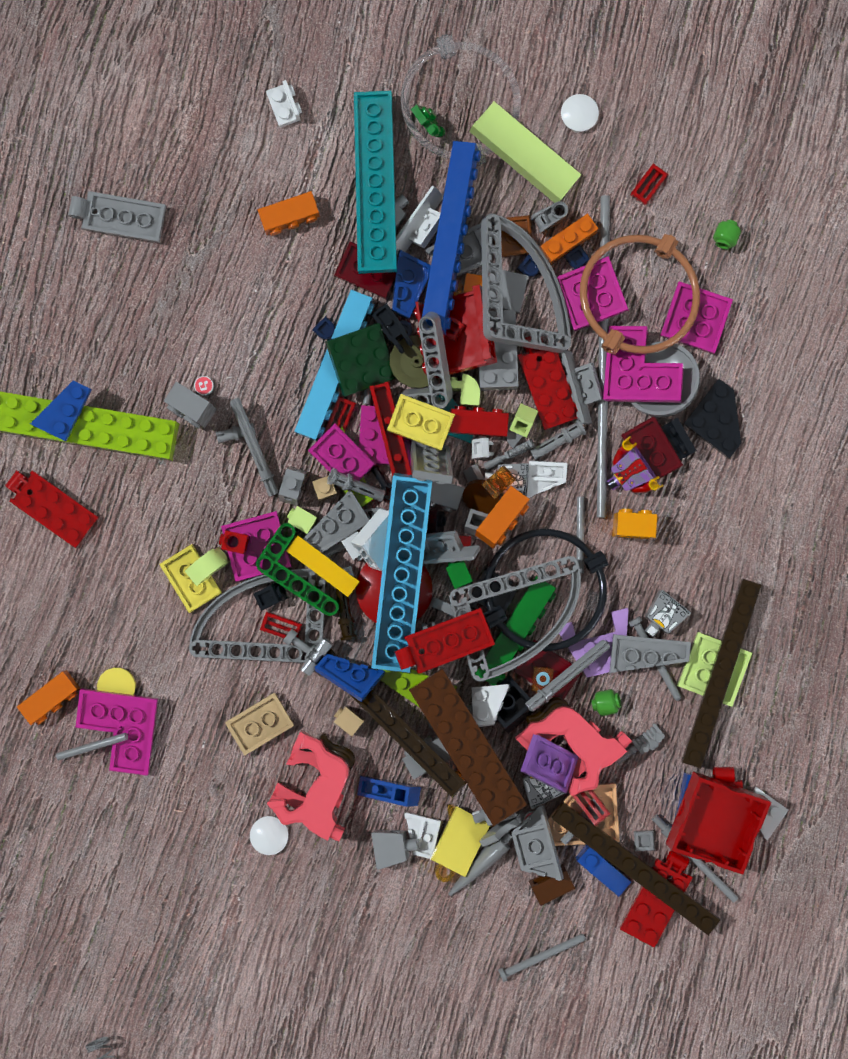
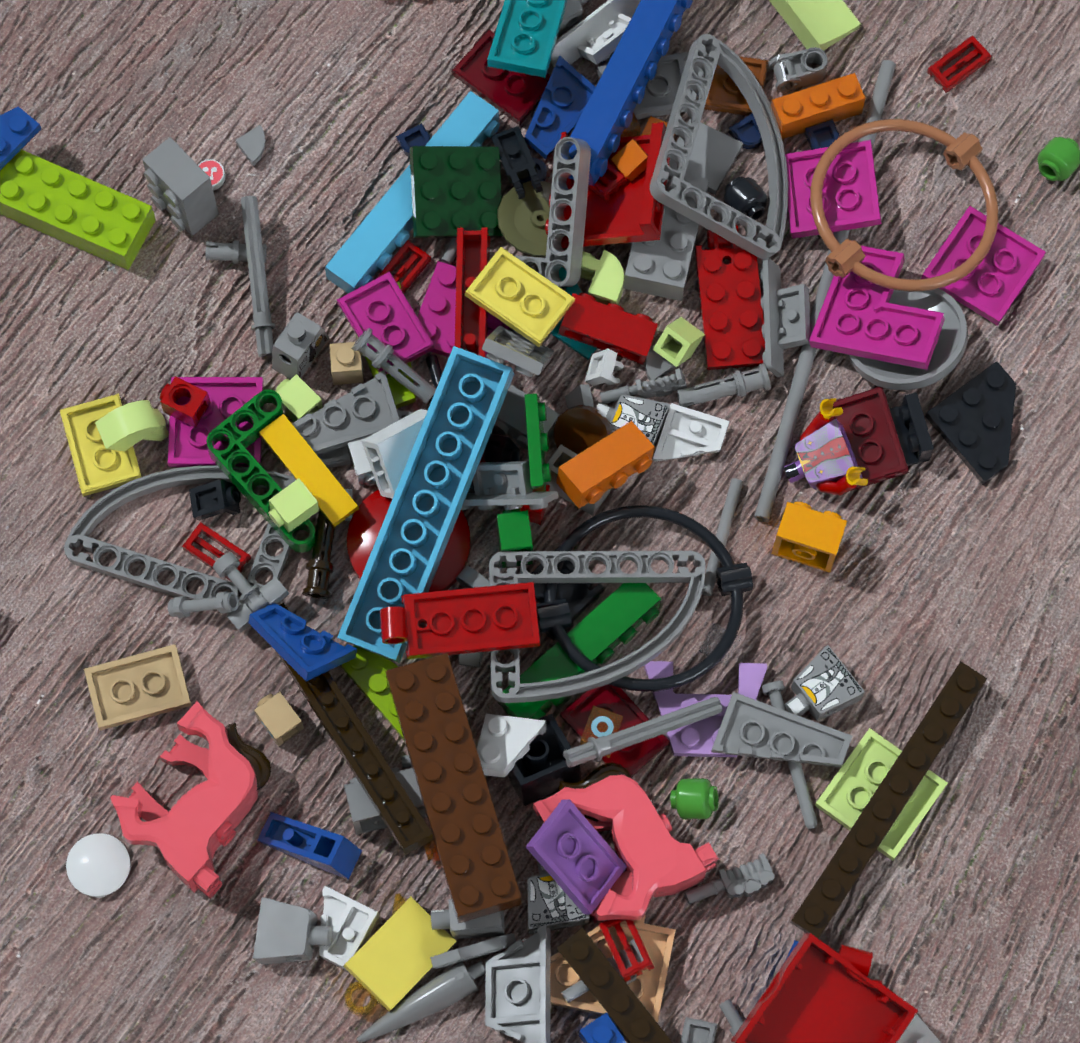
camera: 15 degrees right, 15 degrees down
(224, 358) = (252, 144): none -> light grey tile
(295, 663) = (223, 602): none -> light grey bar
(321, 596) = (292, 506): none -> yellowish green brick
(458, 516) = (537, 442): none -> green wing
(464, 312) = (631, 160): none -> orange tile
(499, 482) = (614, 414): clear orange bracket -> none
(539, 313) = (746, 197): none -> black head

